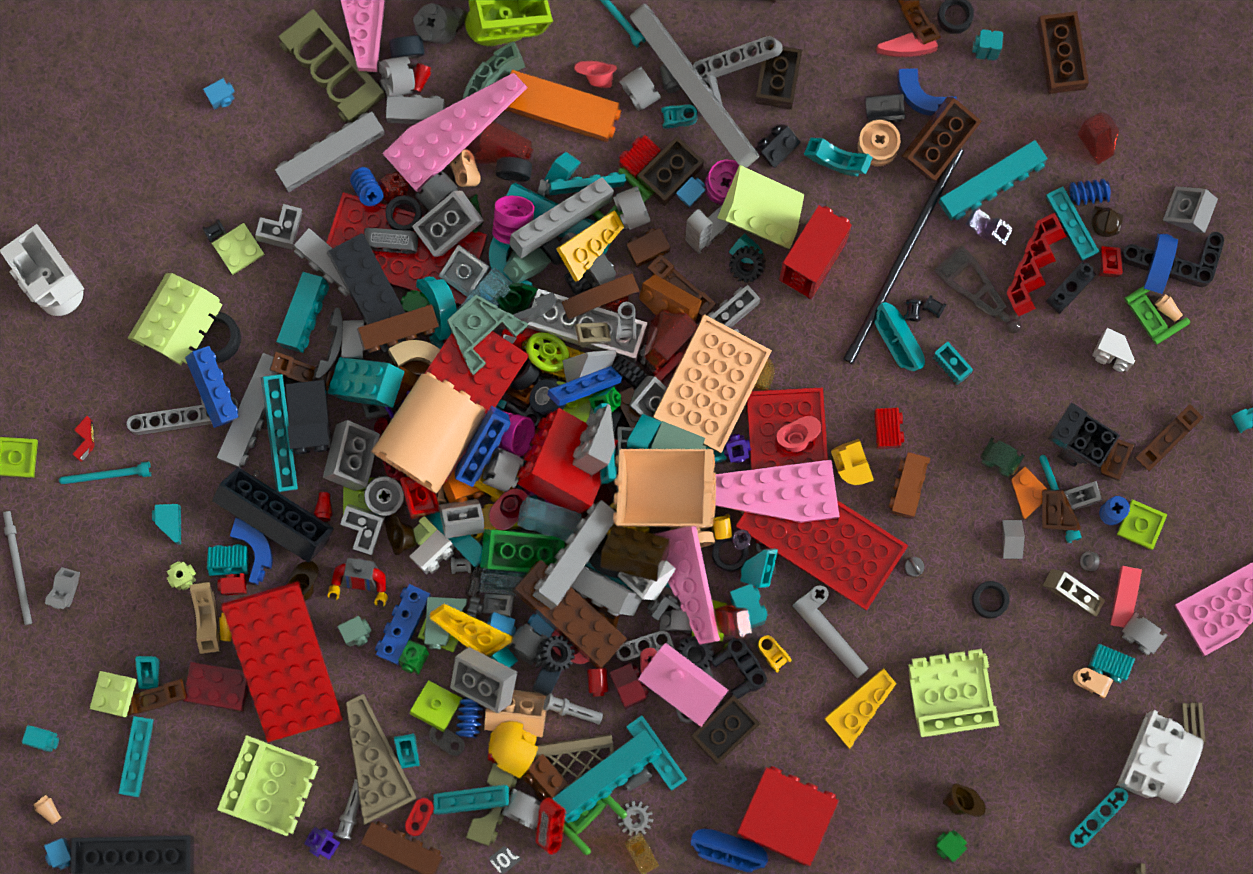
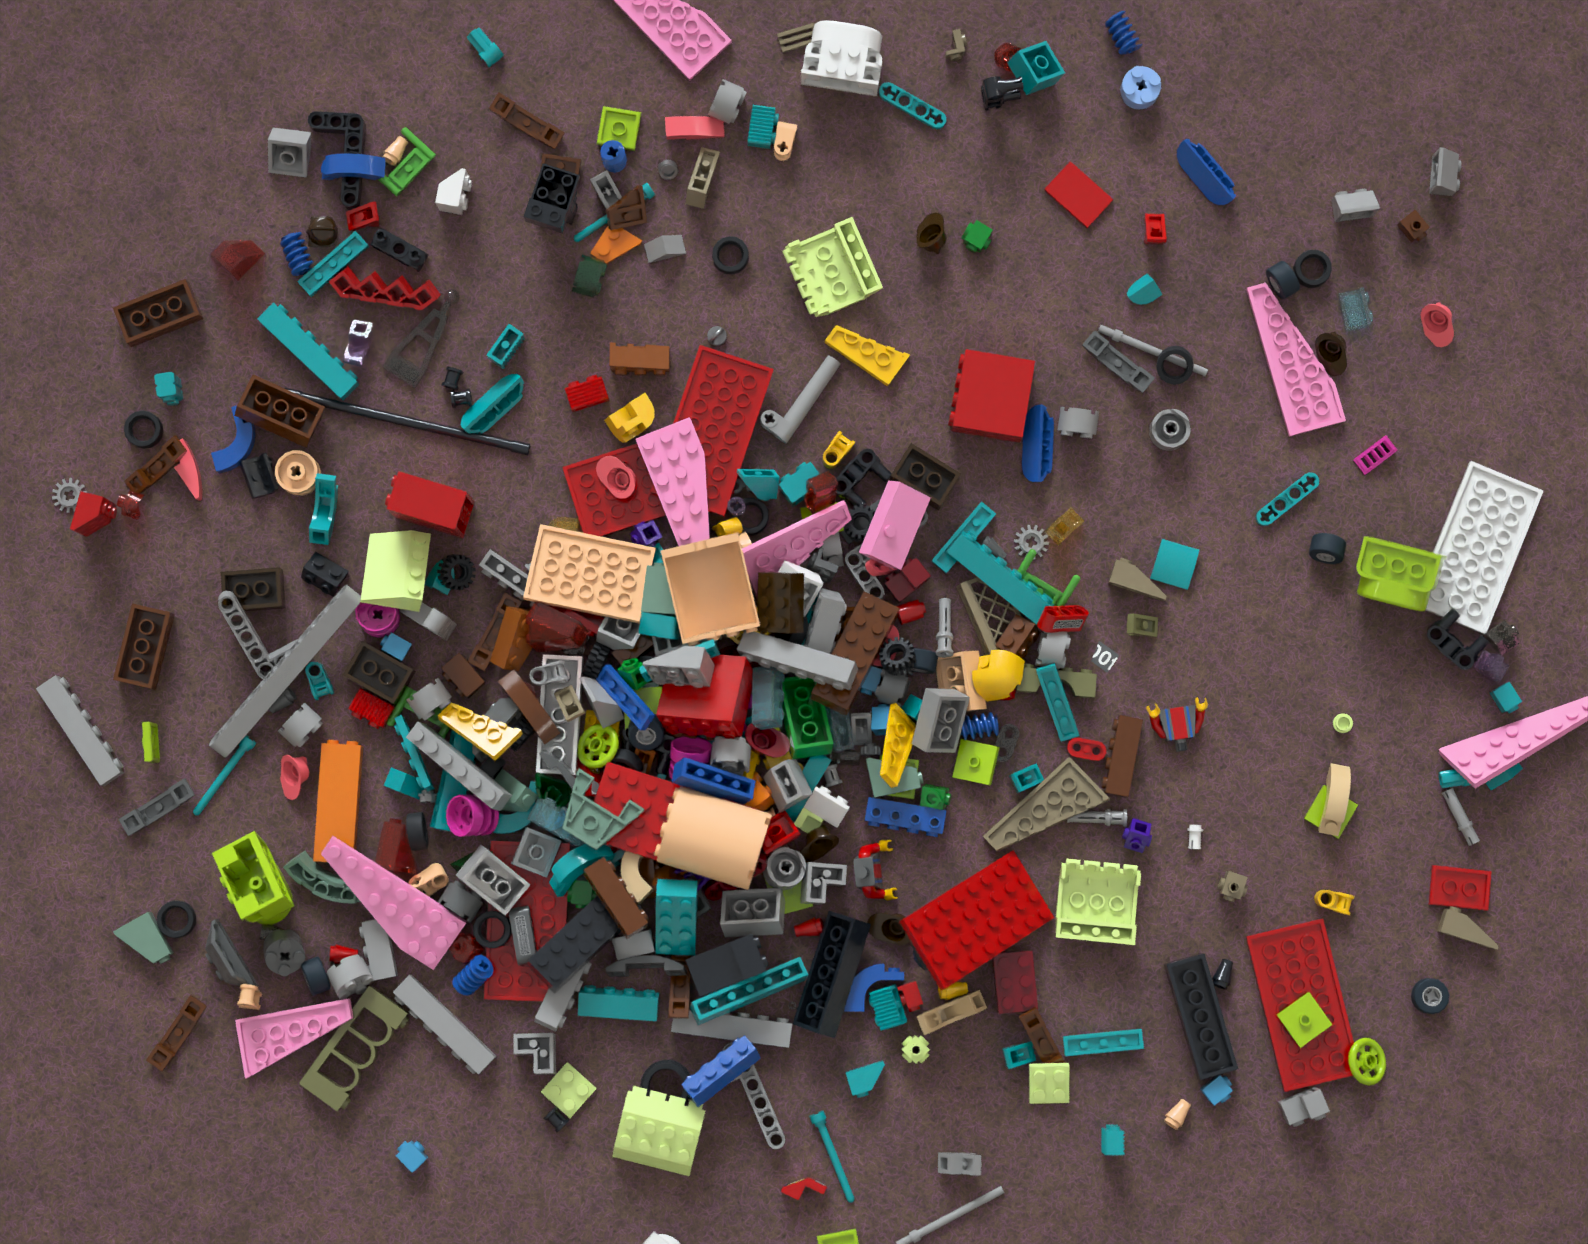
camera: 105 degrees left, 5 degrees up
(355, 631) = (925, 859): sand green brick -> none

